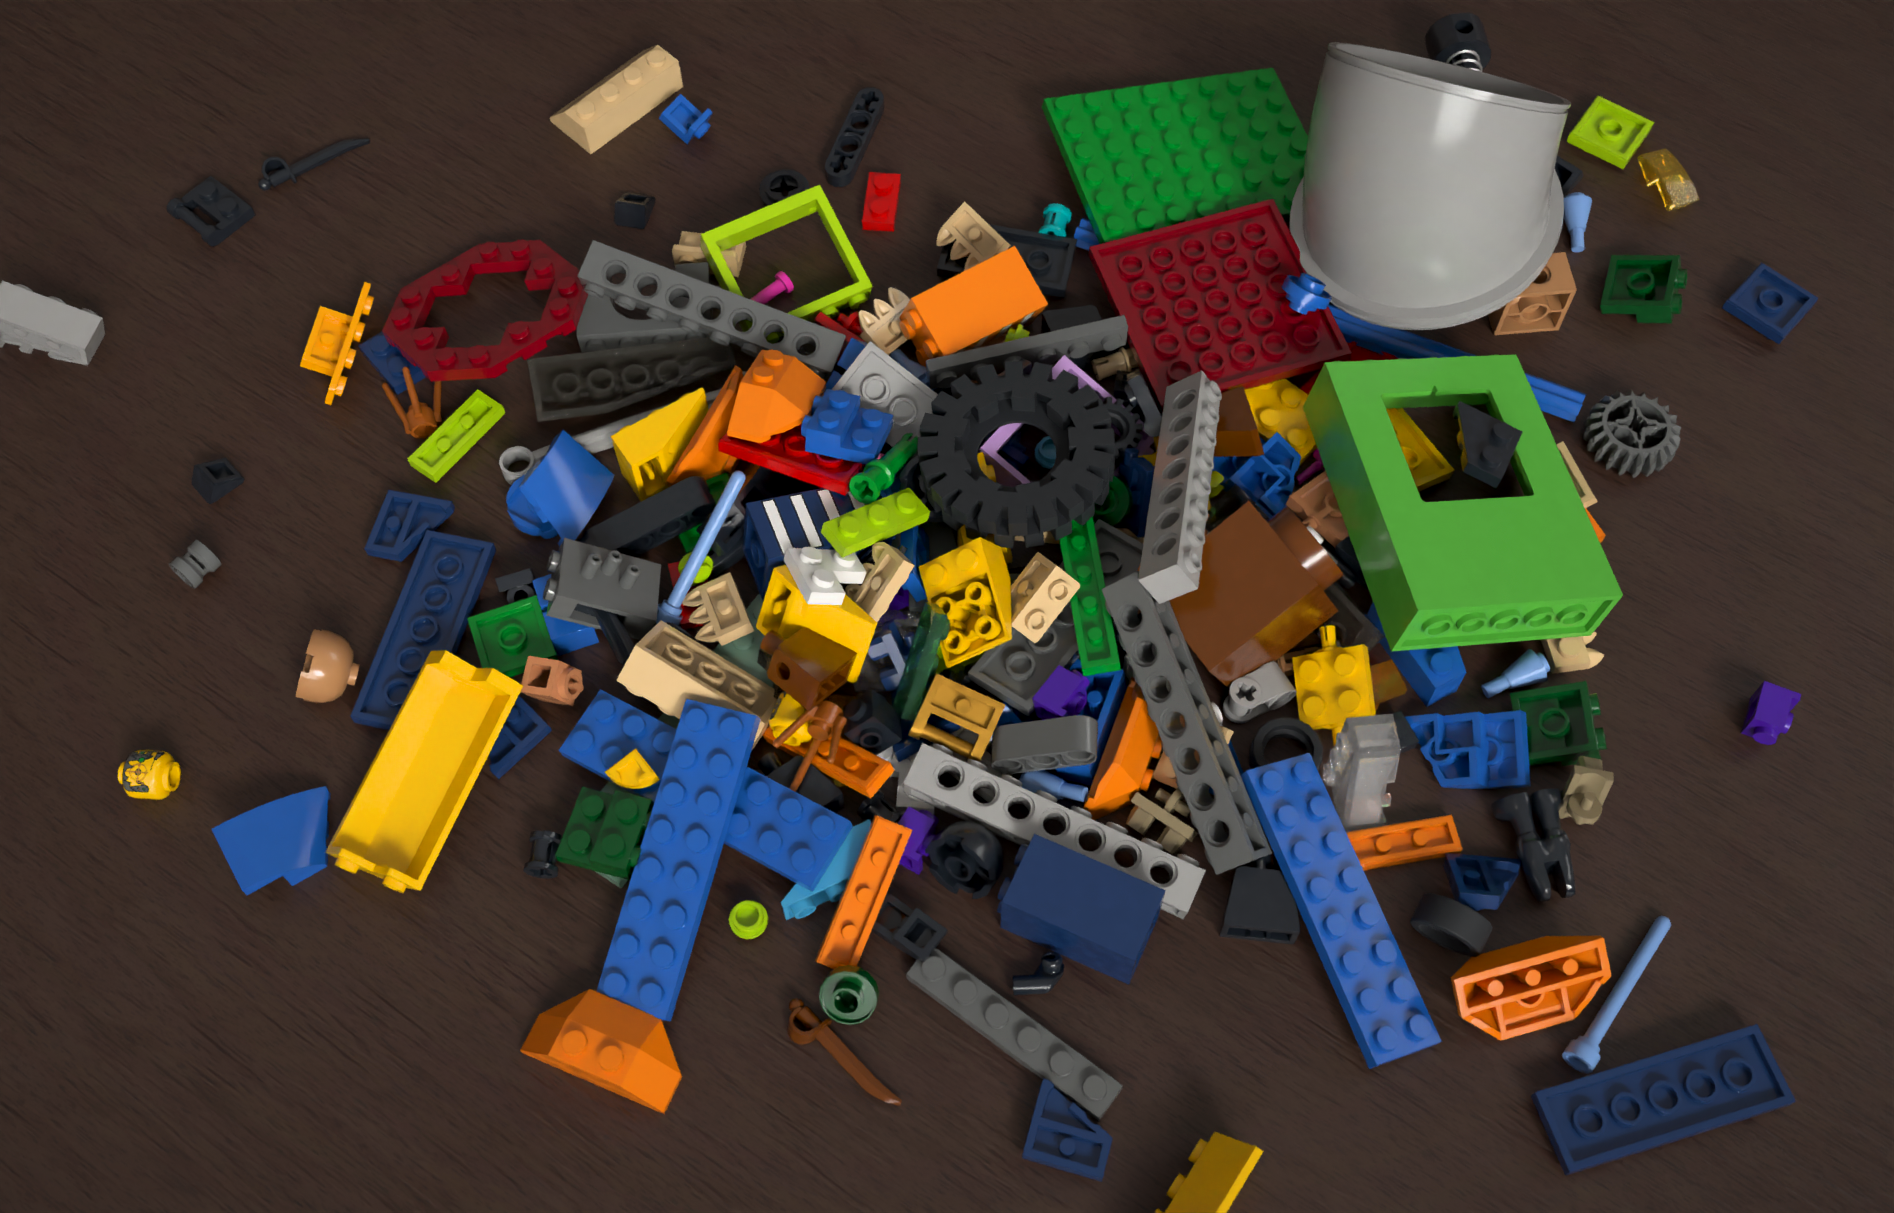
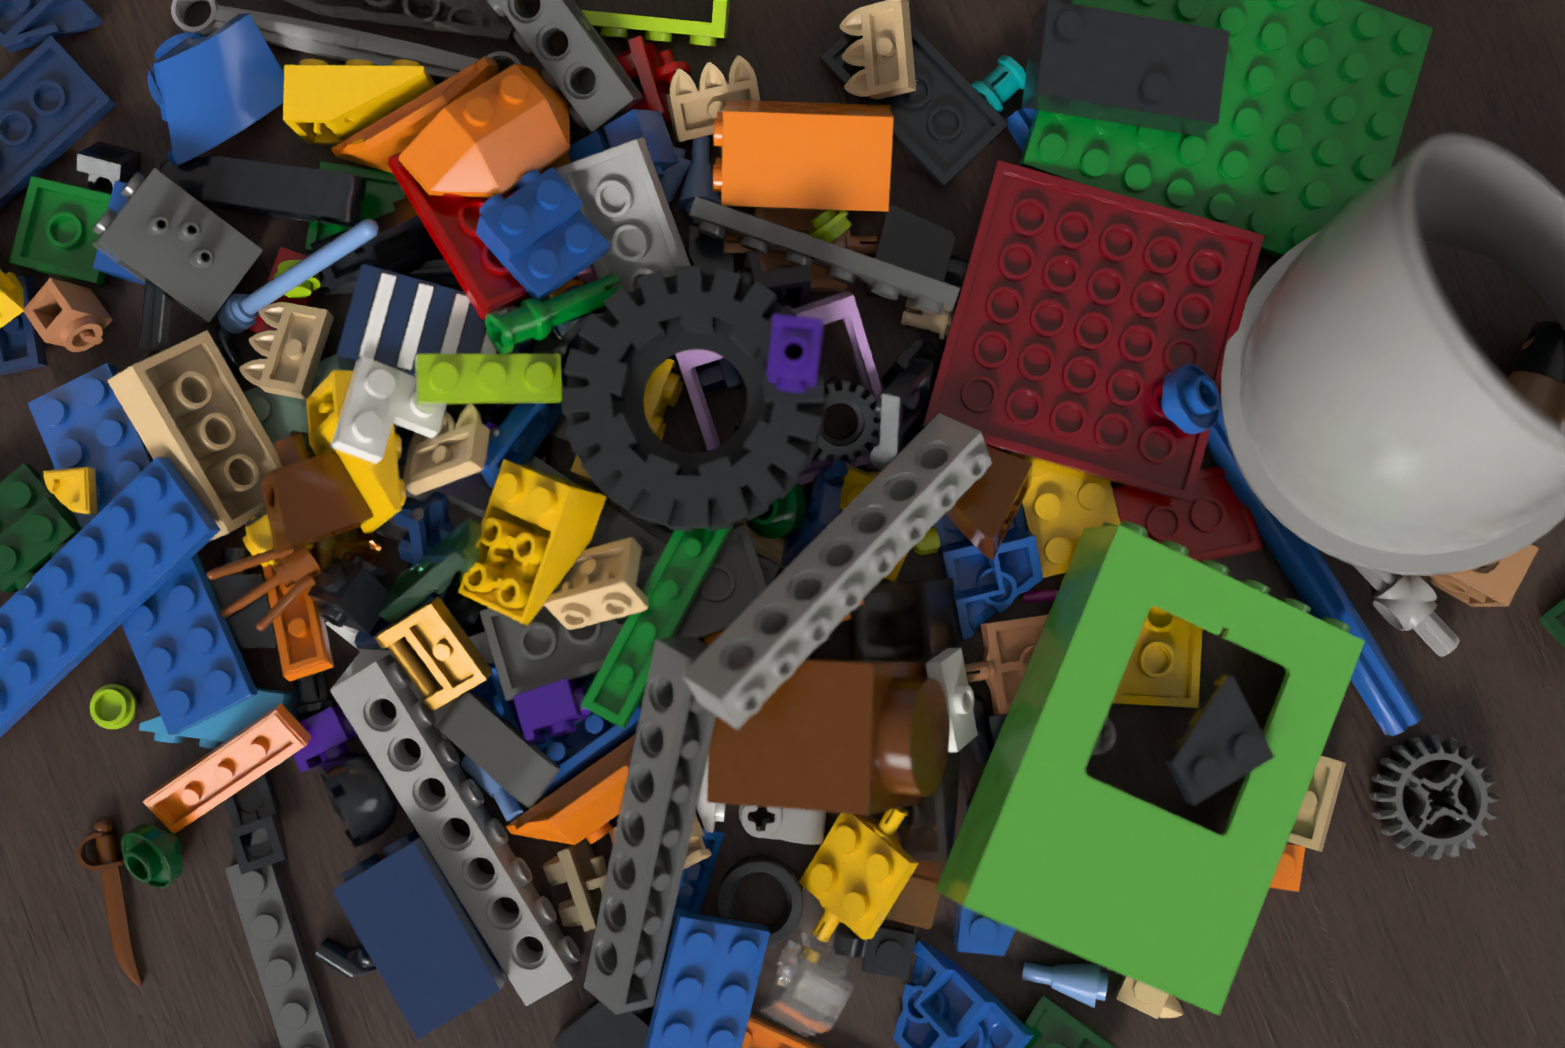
camera: 35 degrees right, 25 degrees up
(1061, 373) = (797, 332): none -> dark purple brick
(1125, 158) = (1125, 68): none -> black brick
(1518, 339) = (1410, 604): none -> light grey axle

